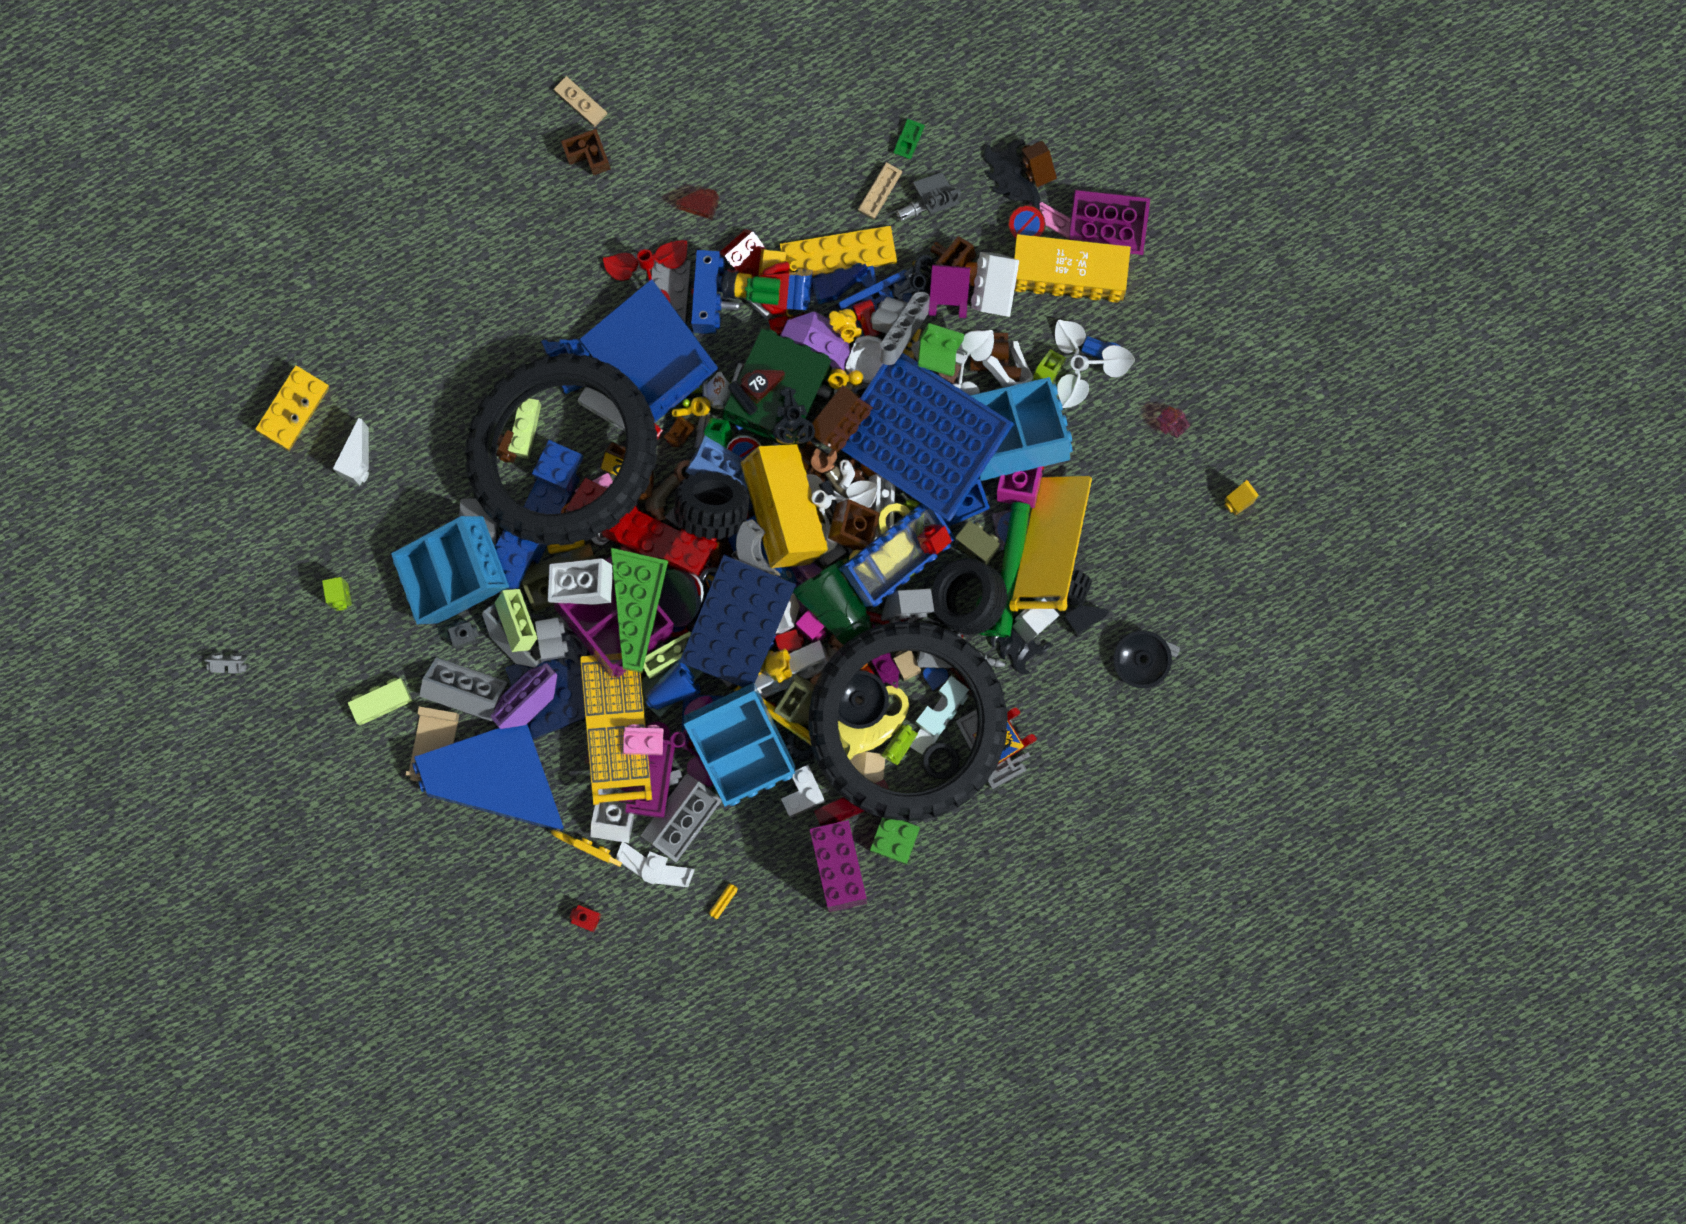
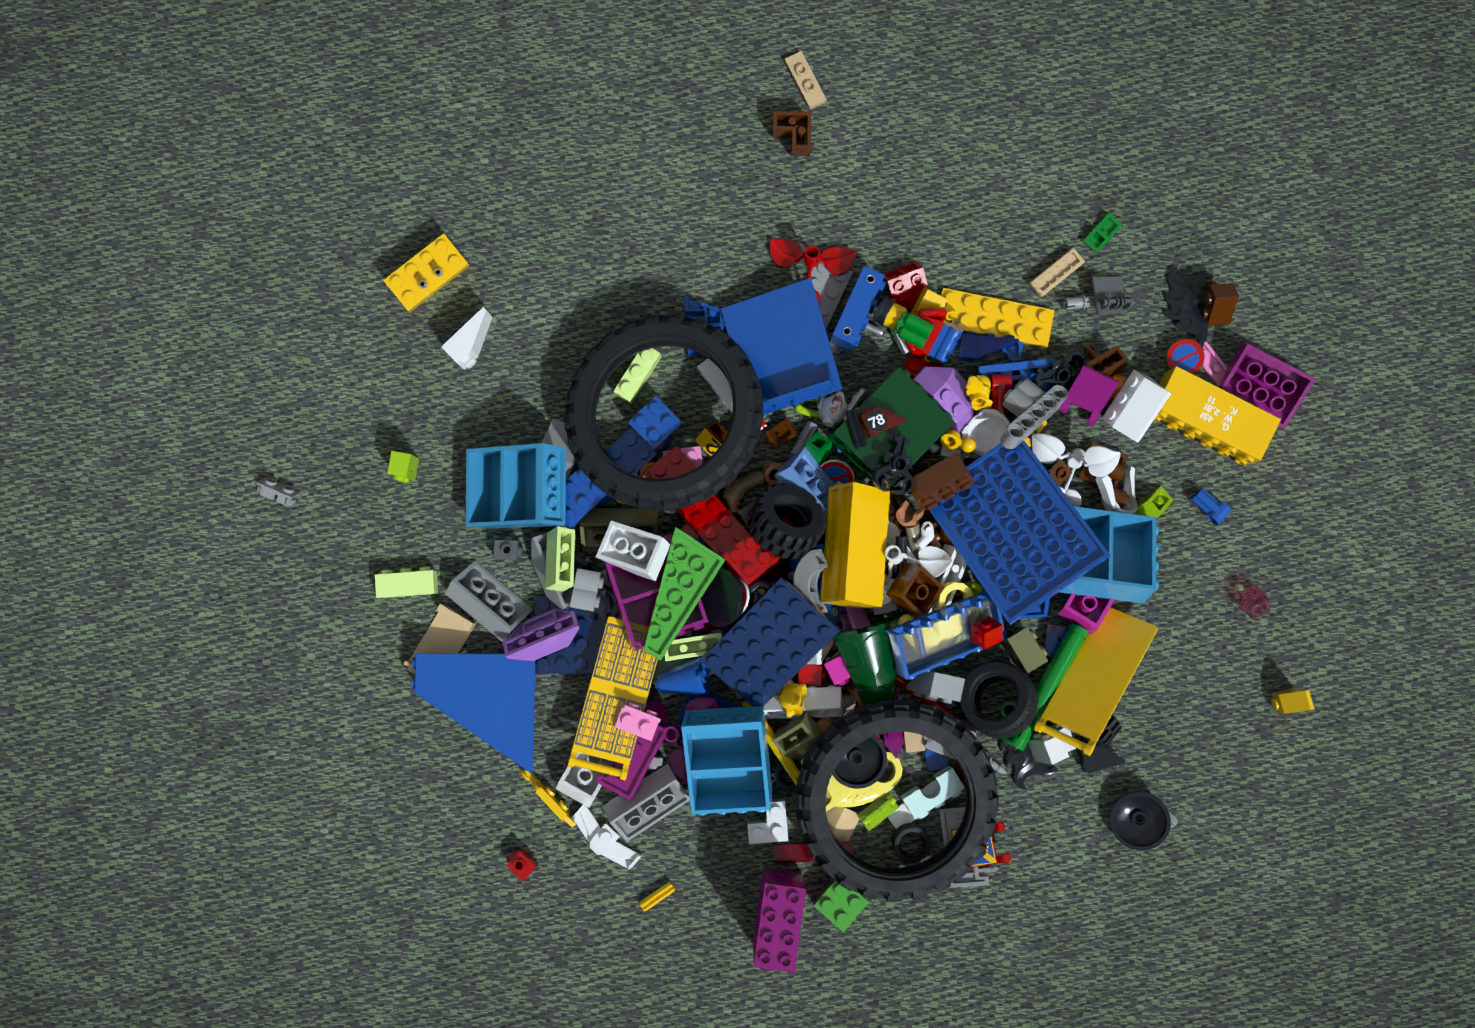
camera: 15 degrees right, 5 degrees up
(504, 442) = (610, 385): reddish brown bracket -> none
(695, 408) = (805, 416): yellow plate -> none
(700, 203) = (882, 220): clear red slope -> none
(939, 349) = (1060, 450): bright green bracket -> none
(1072, 389) = (1221, 524): white plant -> none

